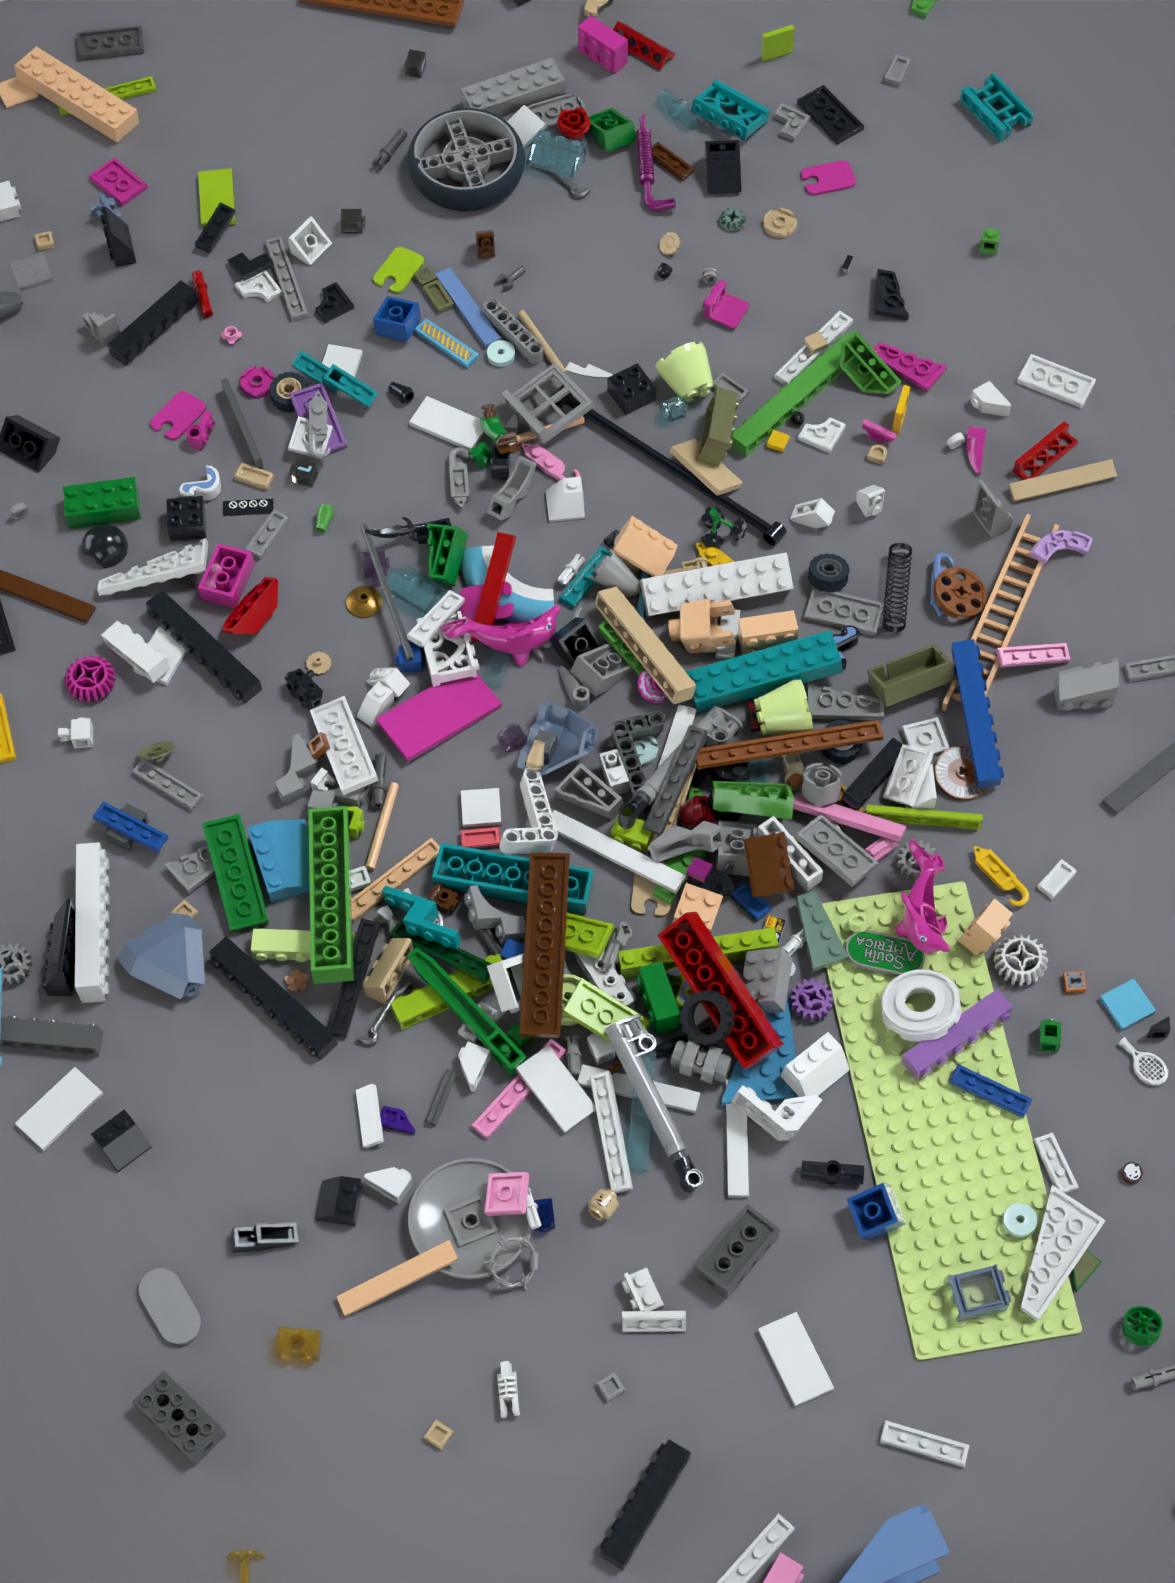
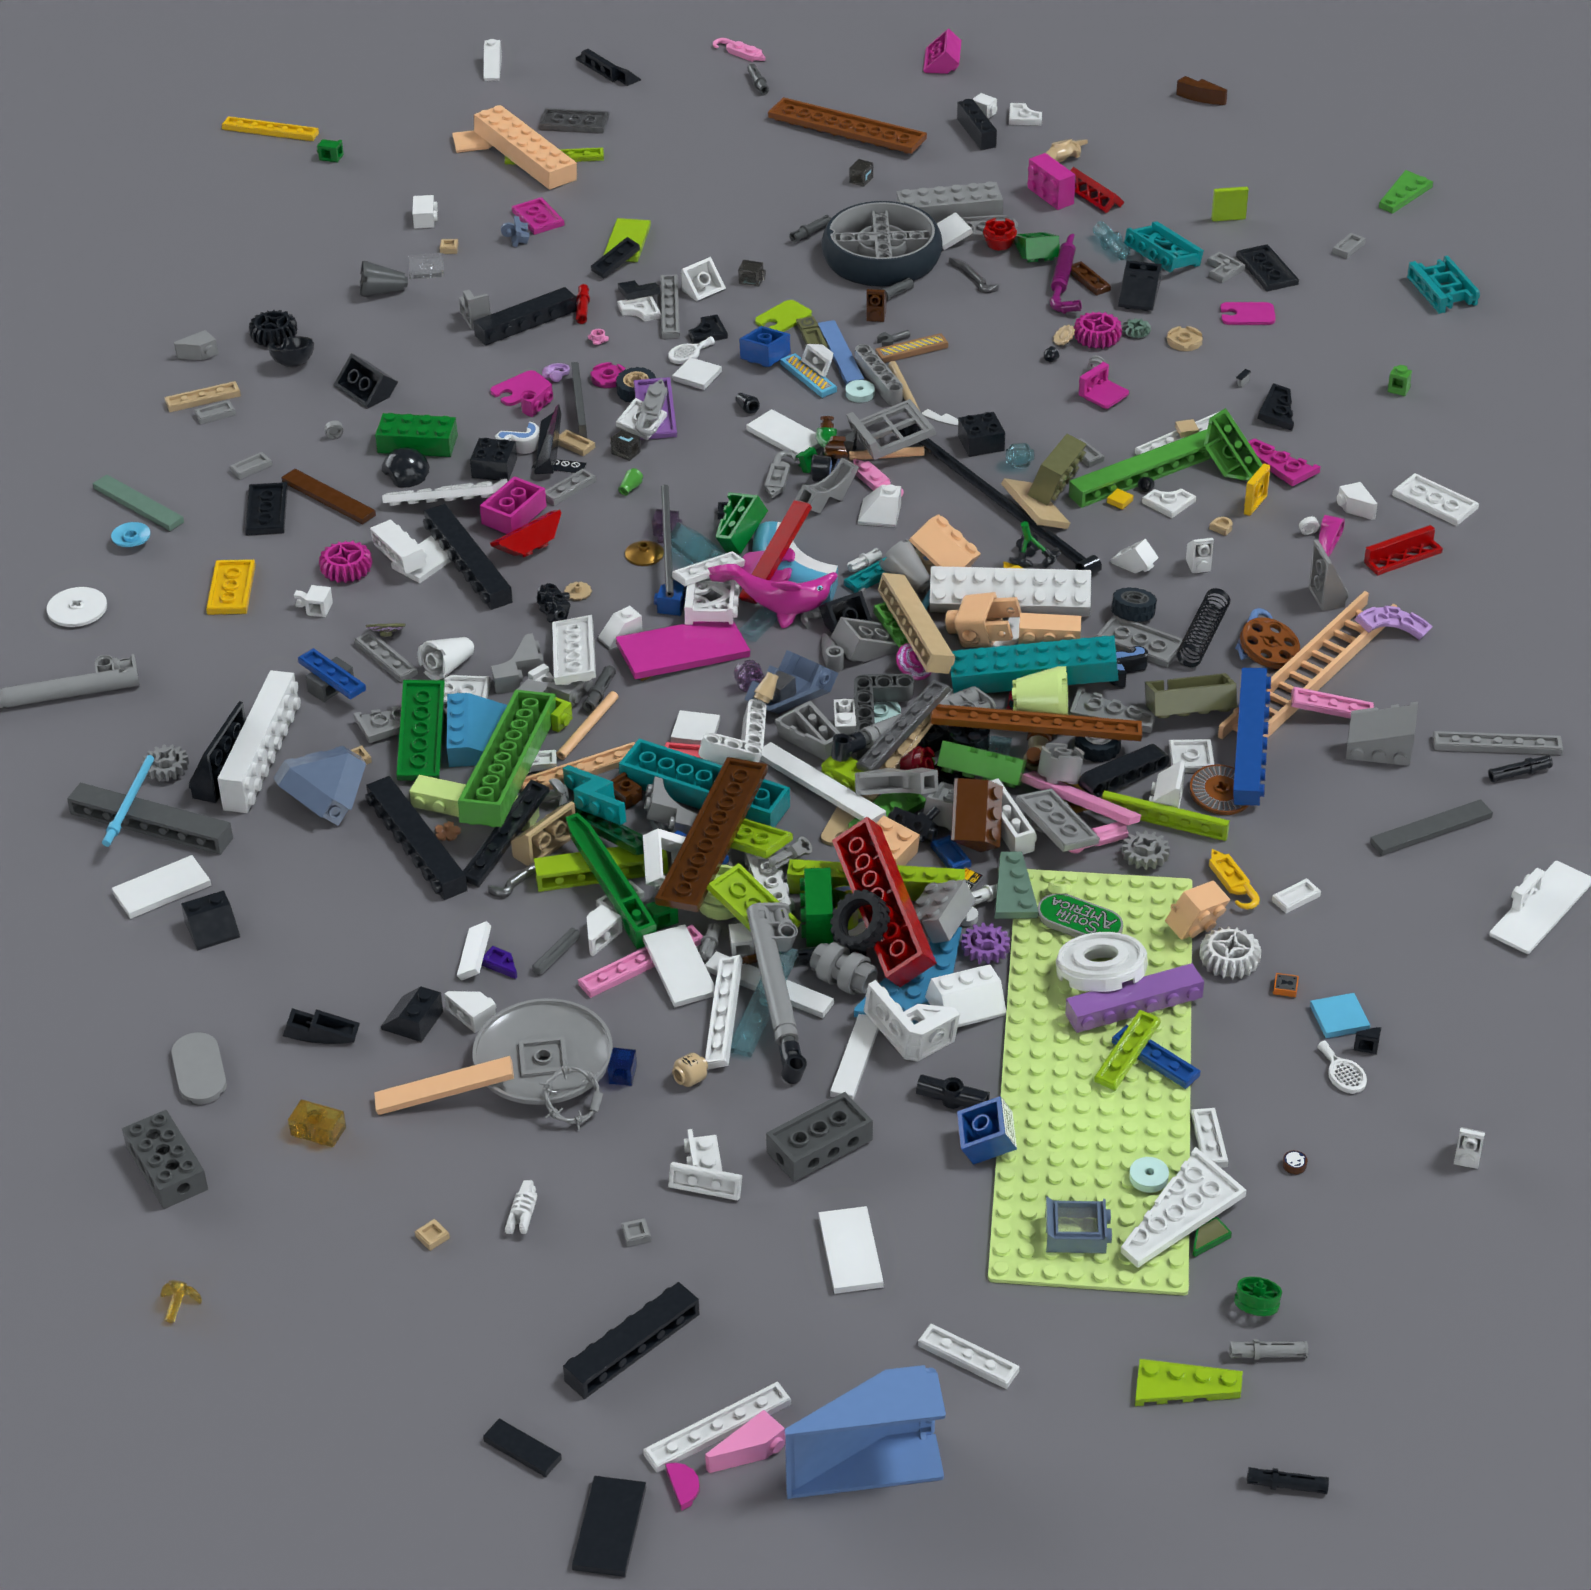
camera: 15 degrees right, 20 degrees down
(118, 238) = (517, 247): black slope -> none
(207, 394) = (552, 371): none -> lavender piece
(226, 777) = (444, 655): none -> white cone
(231, 486) = (548, 443): none -> black wedge
(254, 808) = (467, 684): none -> white tile
(319, 745) = (548, 644): dark orange tile -> none
(328, 328) = (684, 350): none -> white piece
(334, 379) = (684, 378): teal bracket -> none
(391, 678) = (646, 608): white slope -> none
(398, 530) = (698, 498): black piece -> none
(453, 324) = (818, 358): none -> white slope
(493, 216) = (898, 288): none -> dark grey pin
(506, 1193) = (587, 1031): bright pink tile -> none
(531, 1212) = (607, 1048): white axle -> none
(532, 287) = (912, 348): none -> medium nougat tile
(556, 154) = (975, 252): clear light blue slope -> none
(687, 371) = (1041, 421): yellowish green cone -> none
(699, 231) = (1097, 330): none -> dark pink gear
(699, 869) = (901, 804): magenta tile -> none
(877, 432) = (1227, 506): dark pink tile -> none
(908, 775) = (1157, 771): white tile -> none
(920, 917) = (1128, 882): dark pink animal -> none
(967, 1093) = (1127, 1050): none -> lime tile
(1052, 1042) = (1239, 1023): green brick -> none
(1062, 480) = (1415, 575): tan tile -> none
(1103, 1425) = (1174, 1381): none -> lime wing

